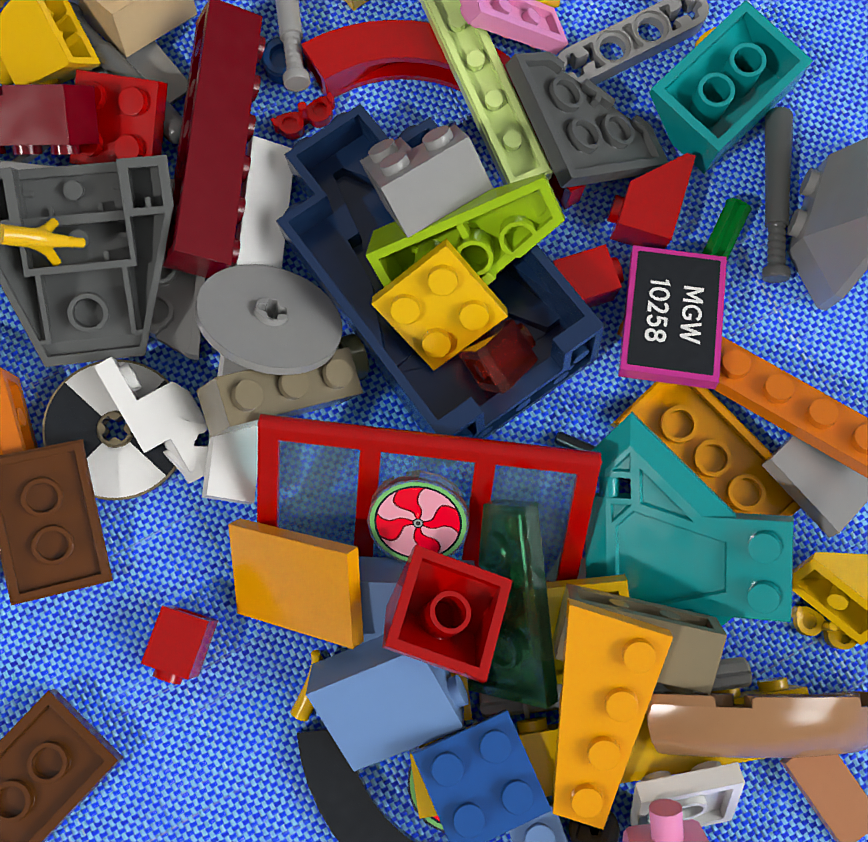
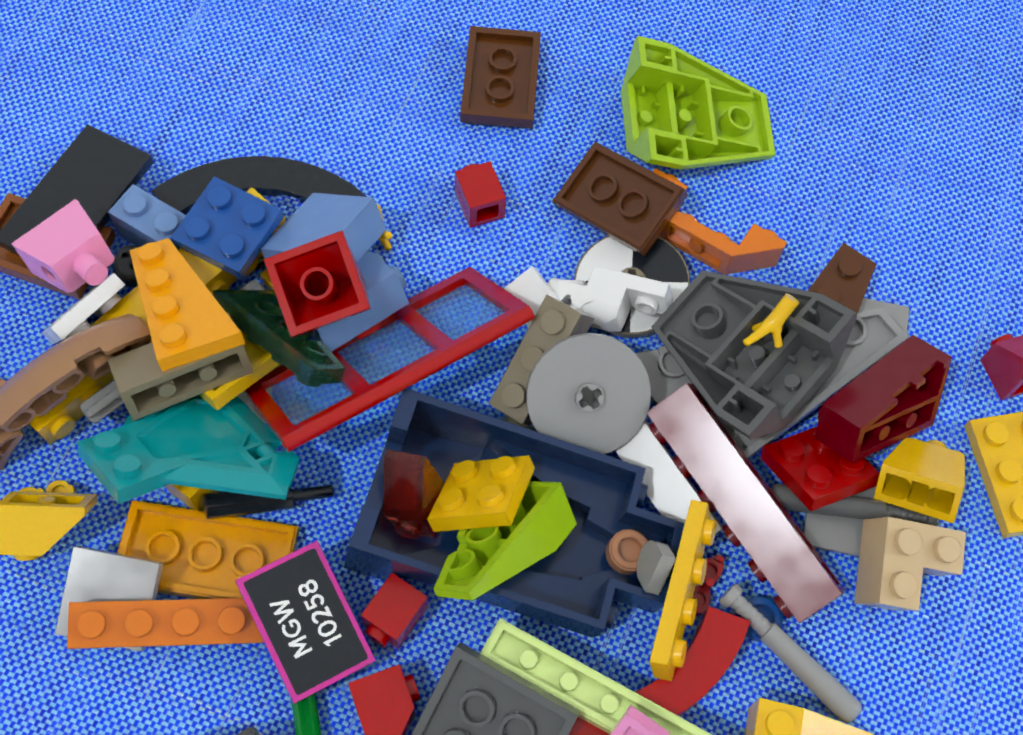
camera: 140 degrees right, 15 degrees down
(297, 582) = (433, 259): light orange tile -> none
(342, 135) = (654, 566): none -> light grey tile
(347, 179) = (624, 550): none -> nougat tile
(352, 86) = (679, 605): none -> yellow plate
(418, 511) = (383, 339): tile -> none
(427, 180) = (562, 556): light grey brick -> none

